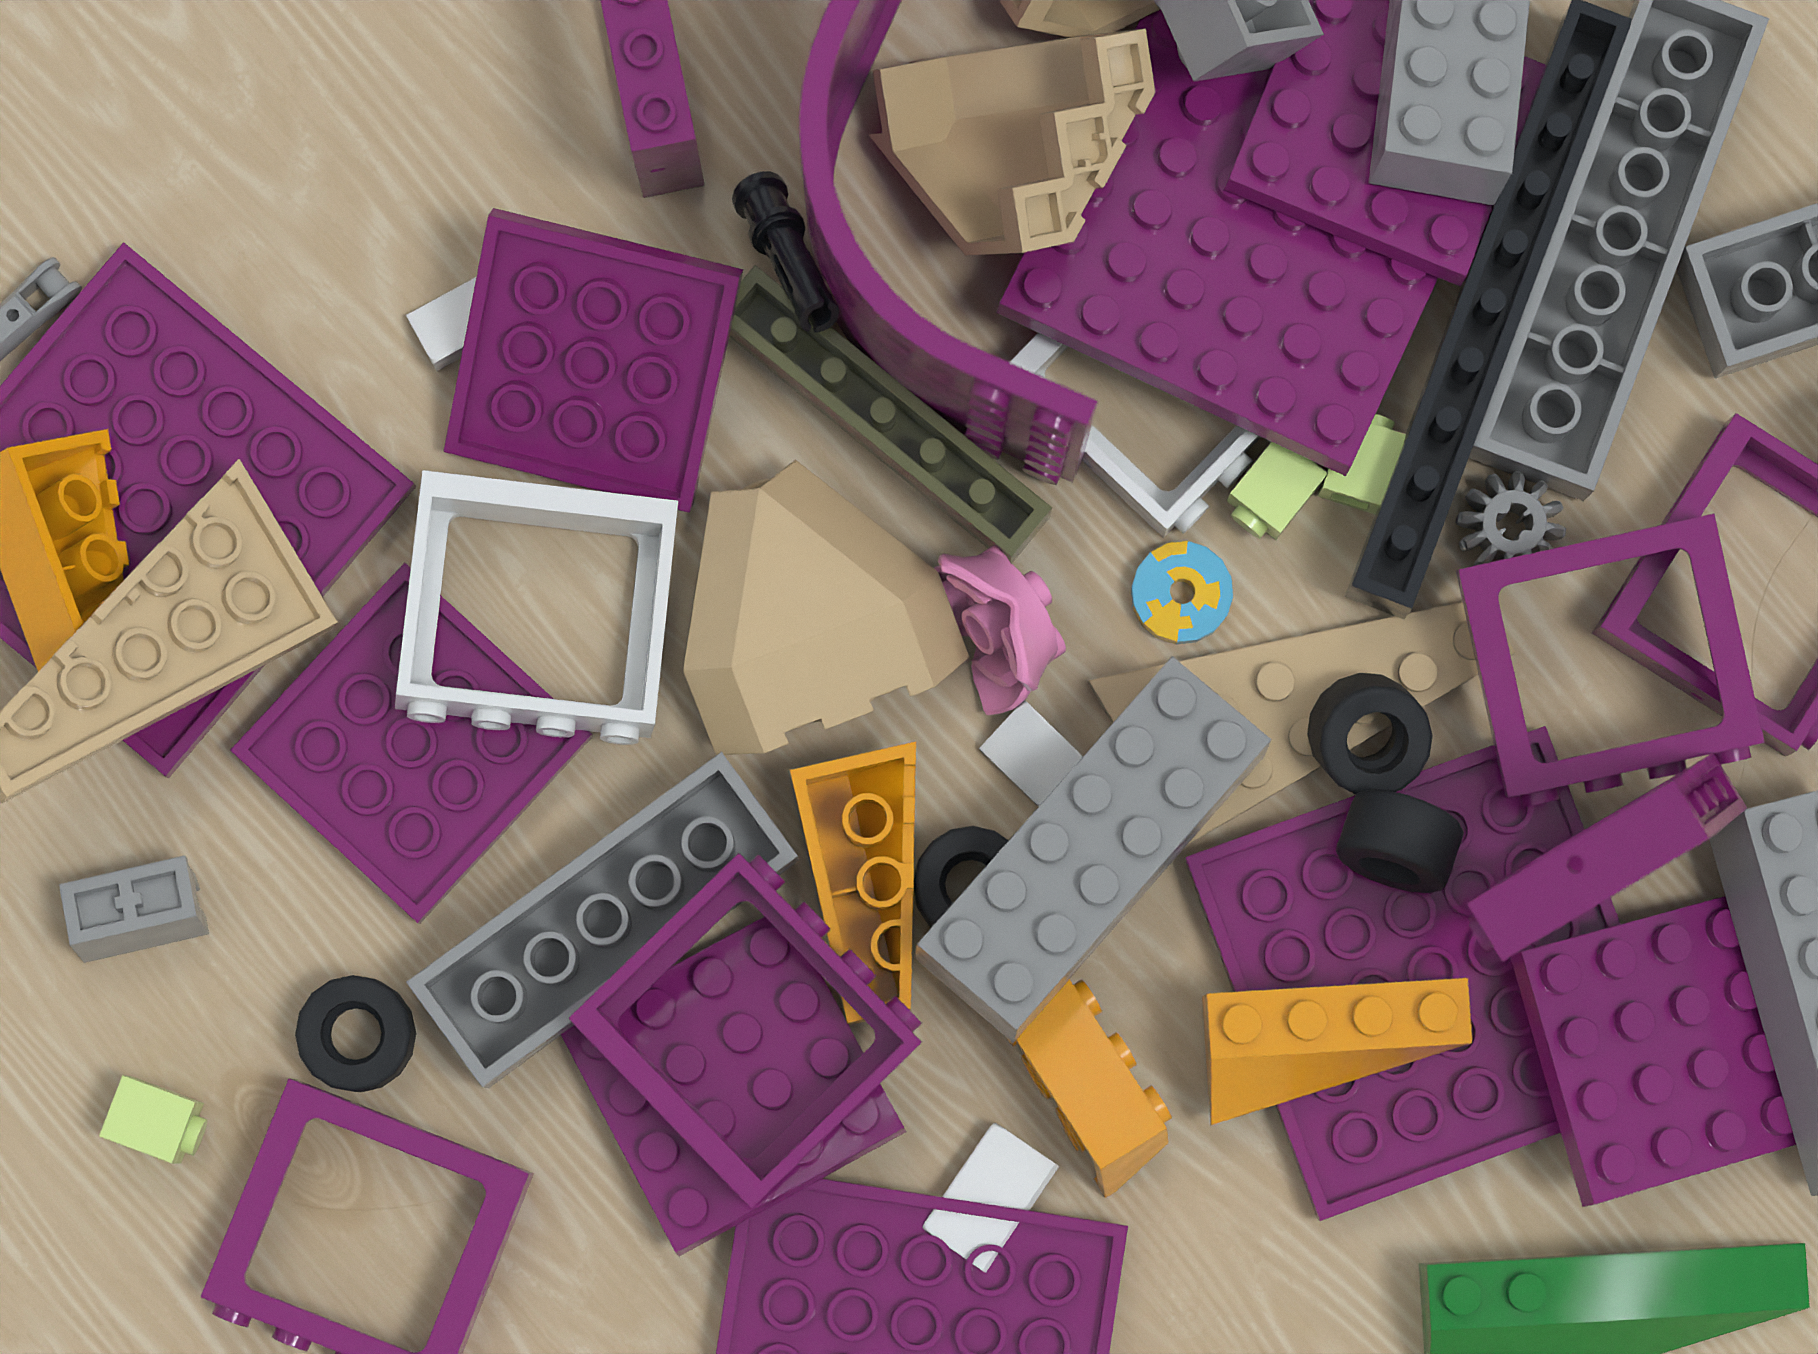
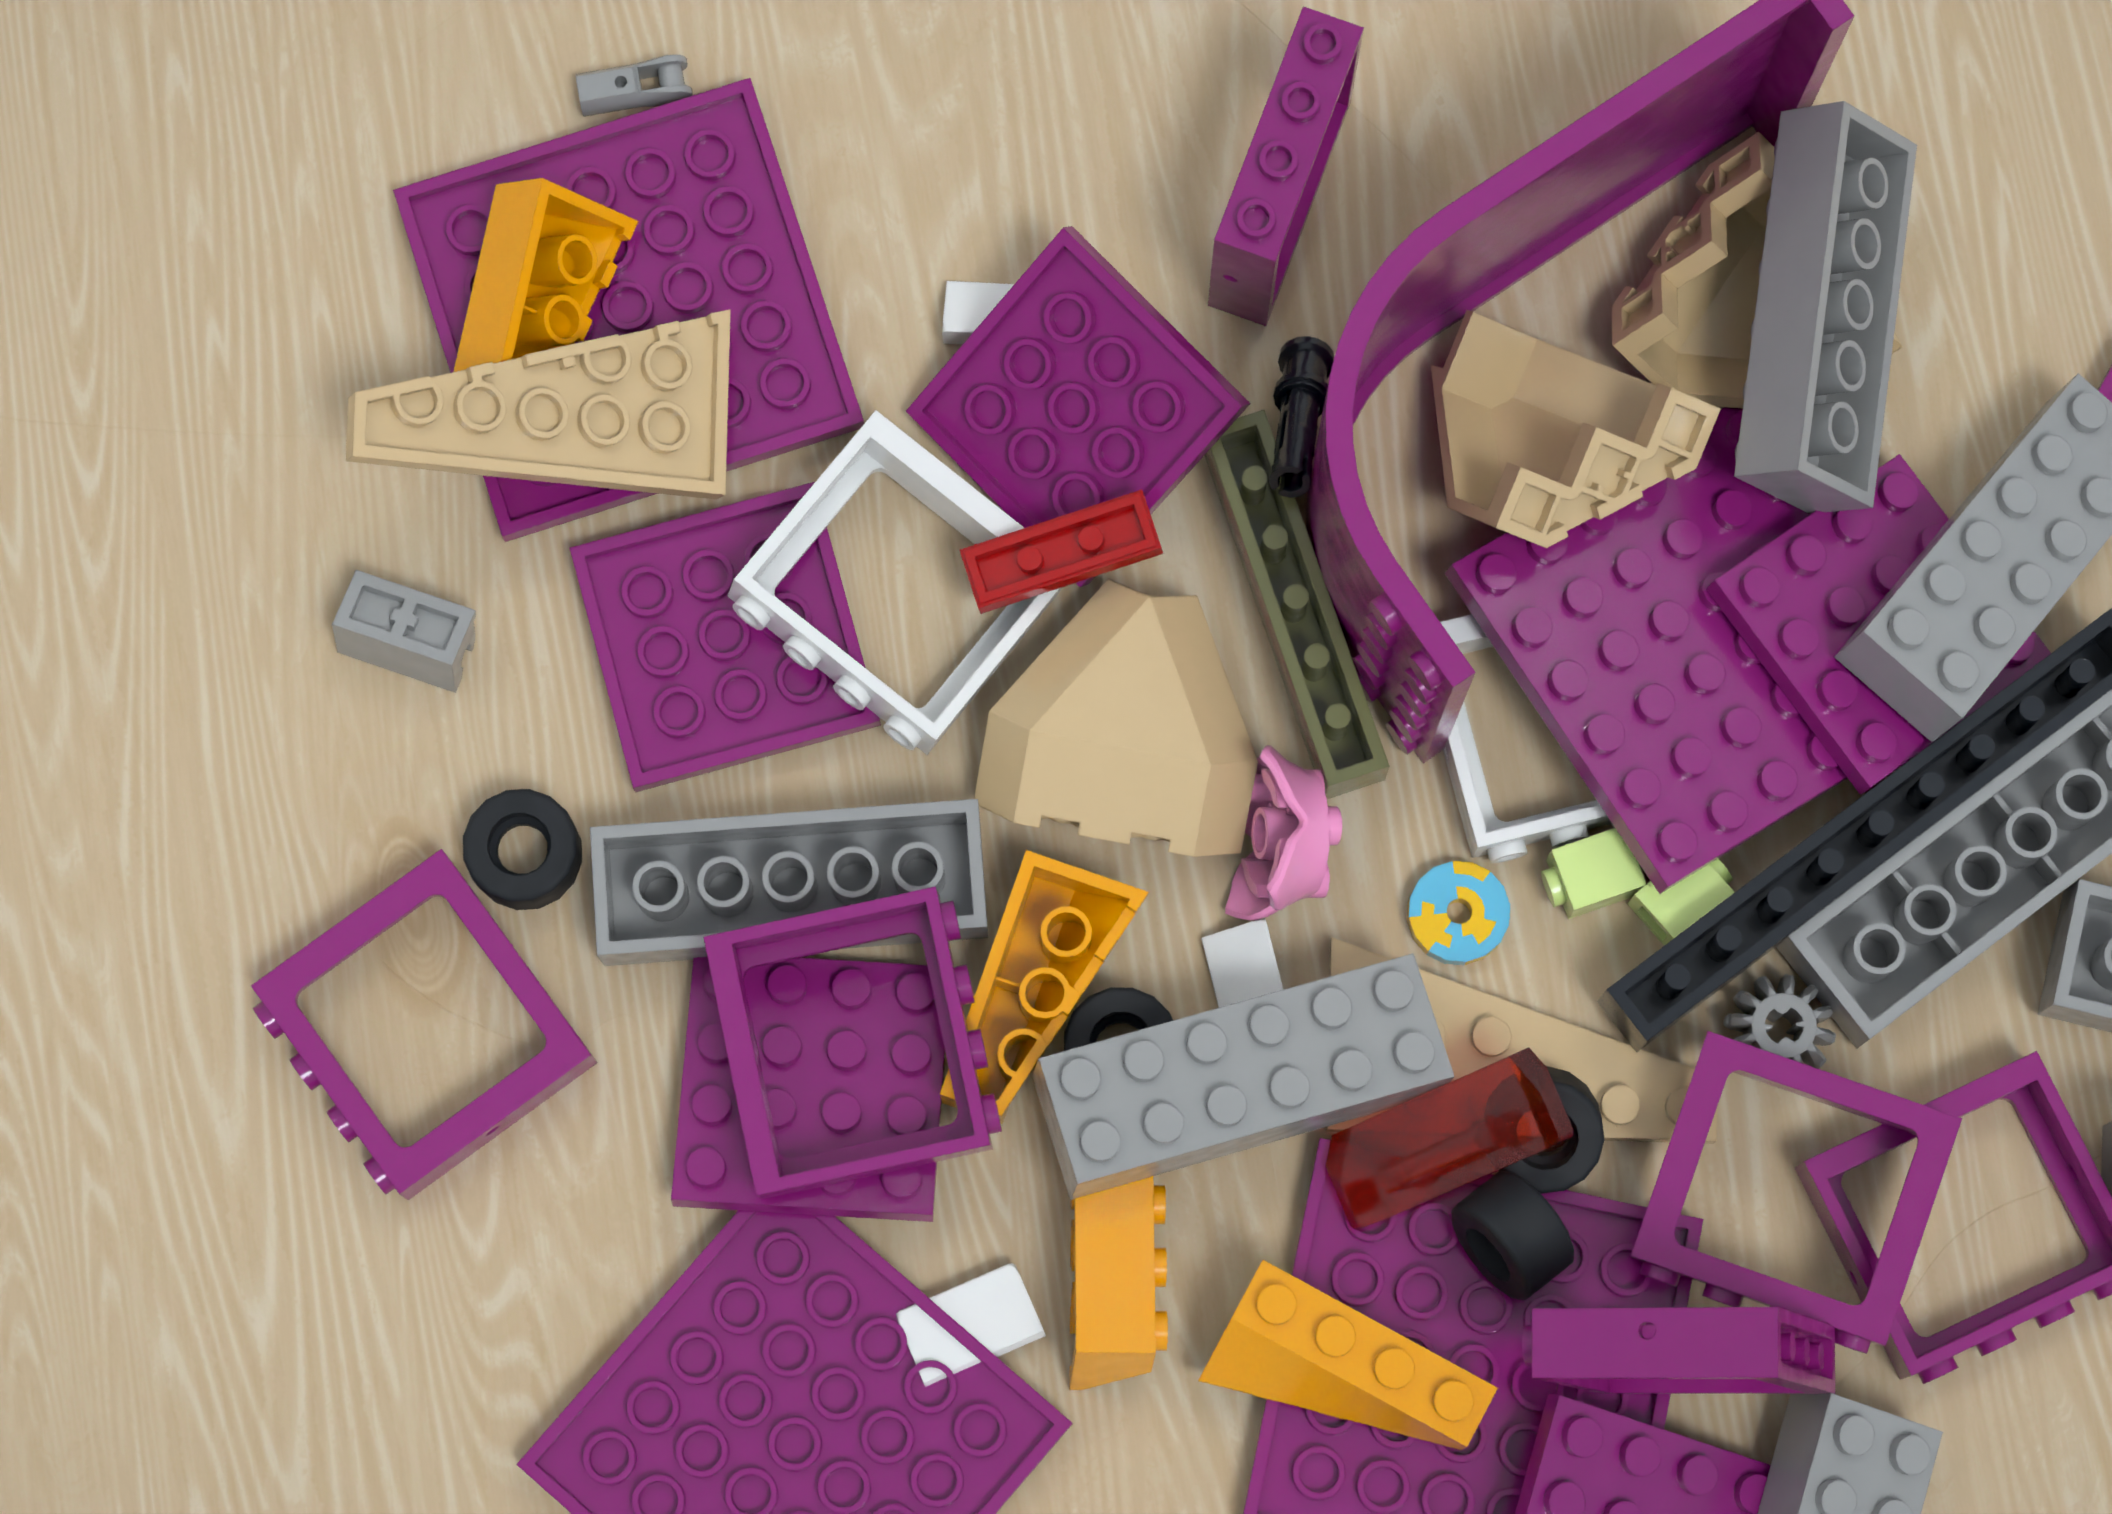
camera: 35 degrees right, 5 degrees down
(154, 1120) = (309, 816): yellowish green brick -> none
(659, 495) = (1061, 551): none -> red tile
(1294, 795) = (1446, 1139): none -> clear red piece

